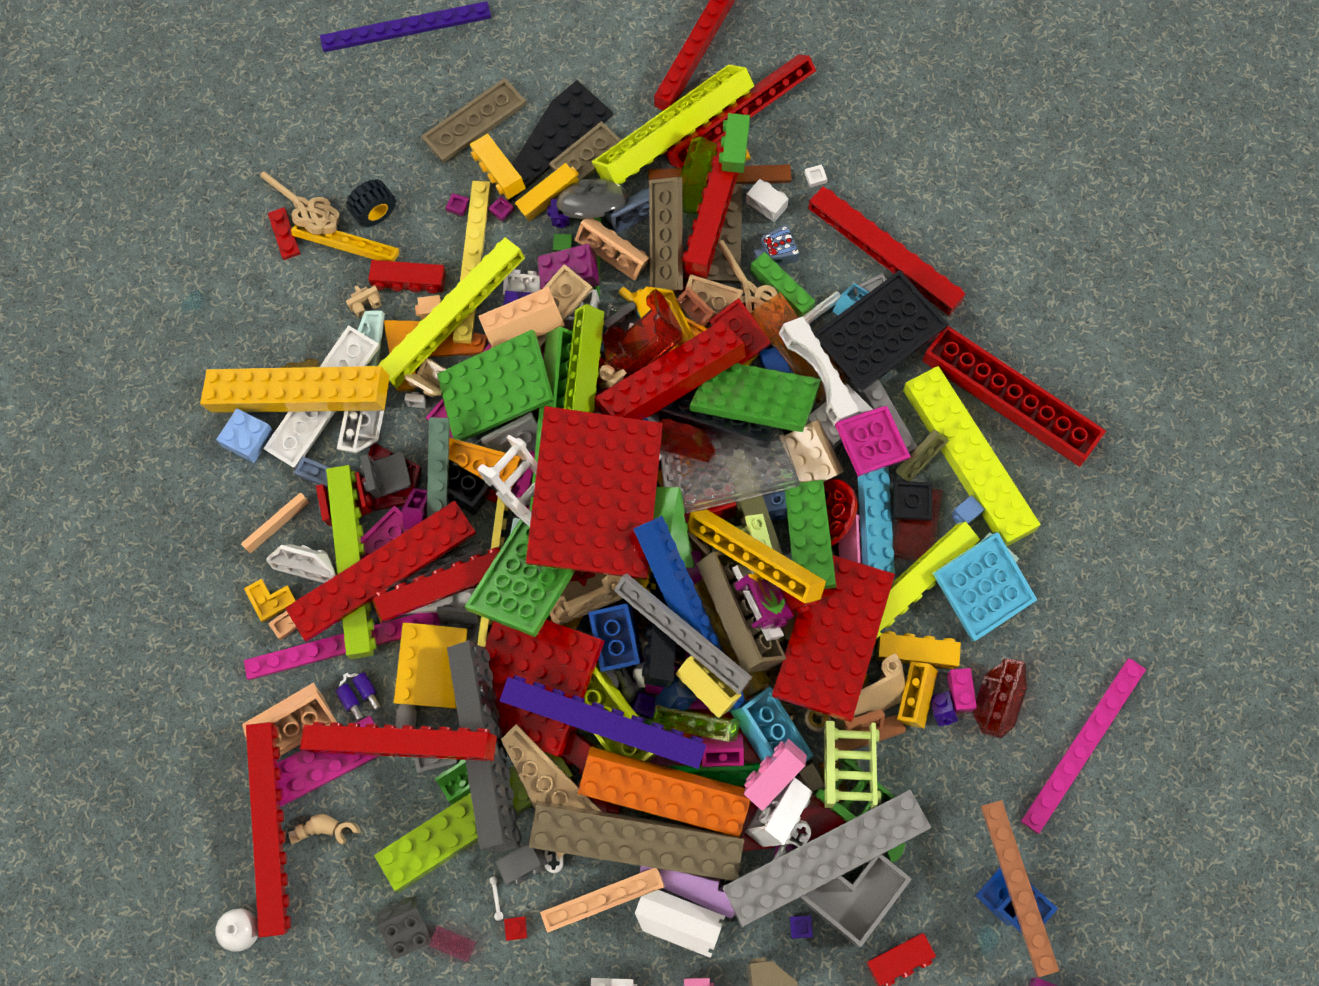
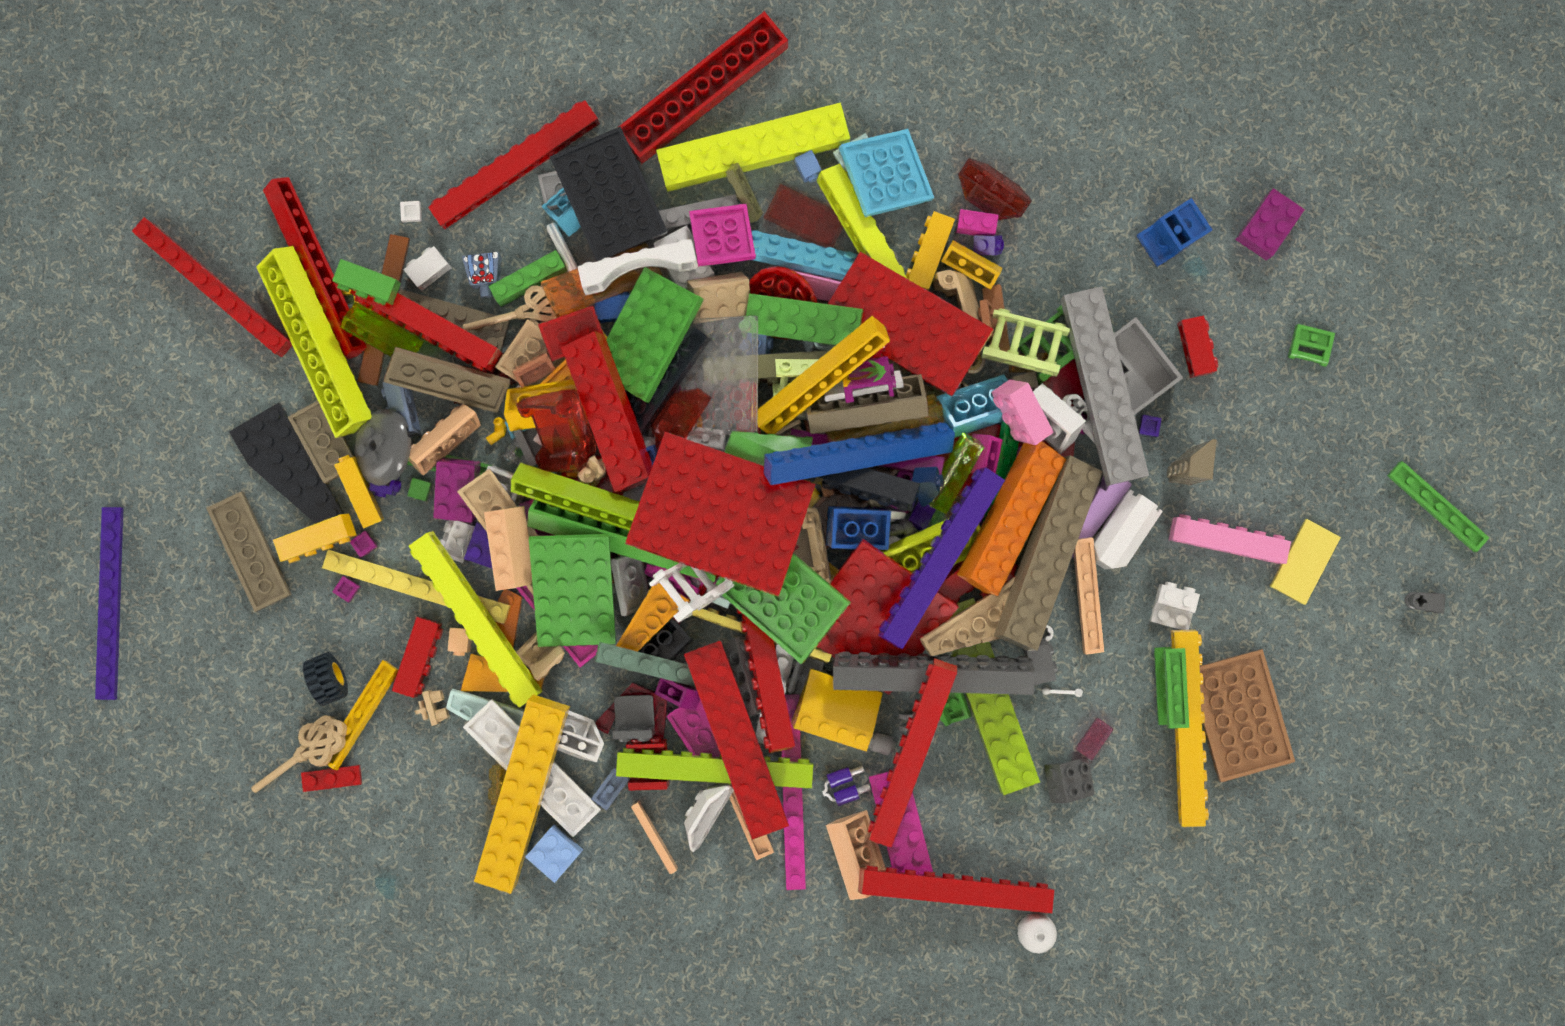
camera: 80 degrees left, 15 degrees up
(268, 604) = (736, 858): yellow plate -> none
(322, 824) = (961, 838): tan piece -> none
(415, 400) = (558, 674): white plate -> none
(515, 928) = (1093, 679): red plate -> none
(683, 633) = (878, 463): light grey plate -> none
(707, 687) = (928, 451): light yellow brick -> none
(912, 501) = (785, 215): black tile -> none
(1019, 889) = (1167, 225): nougat plate -> none
(1083, 746) = (1048, 129): dark pink plate -> none

